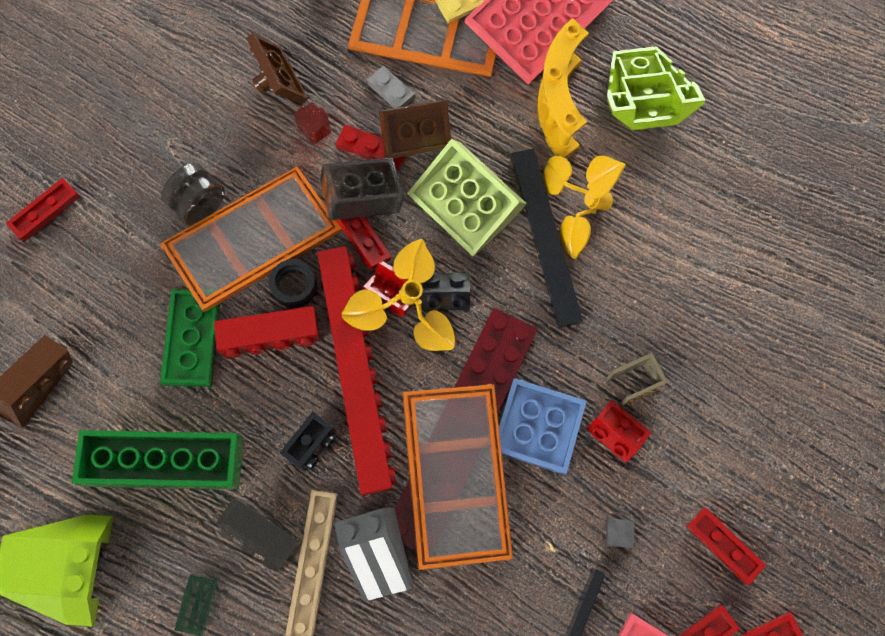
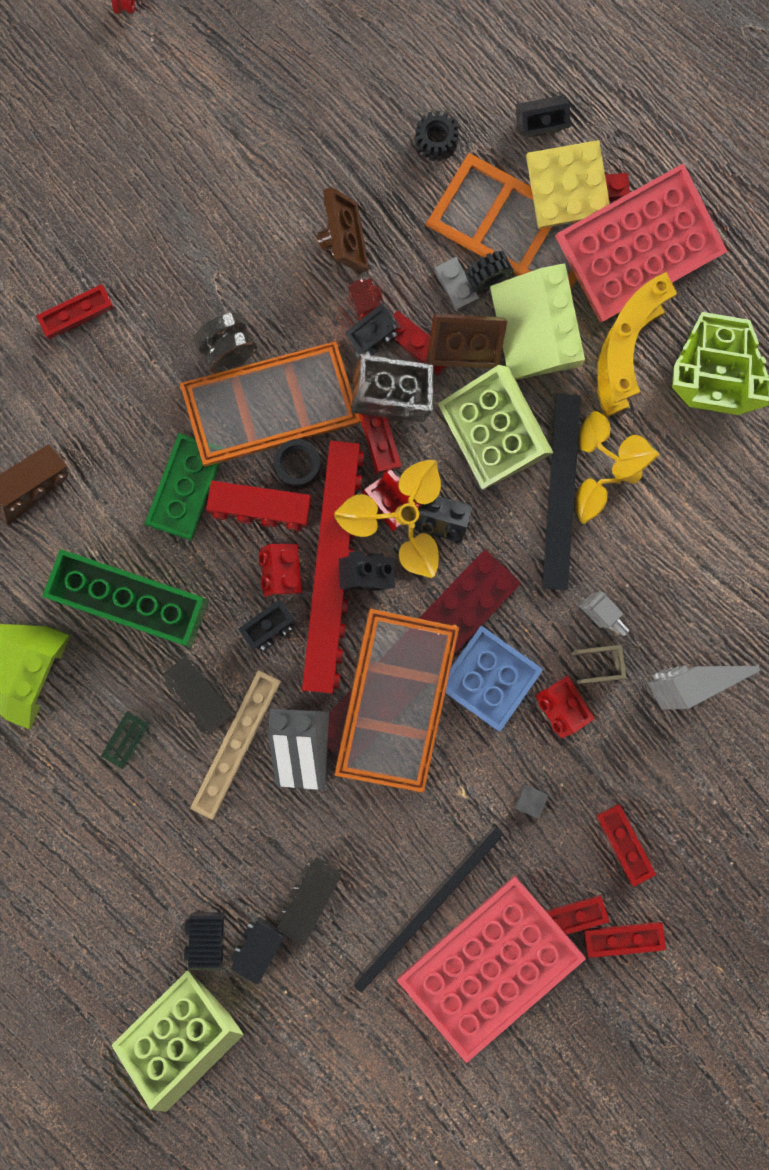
camera: 20 degrees right, 10 degrees up
(305, 386) = (280, 569): none -> red bracket
(328, 144) = (373, 330): none -> black bracket
(389, 361) = (366, 572): none -> black brick
(416, 67) = (488, 271): none -> black tyre
(477, 97) = (540, 322): none -> yellowish green slope
(624, 330) = (604, 613): none -> light grey piece
(733, 364) = (686, 686): none -> light grey slope

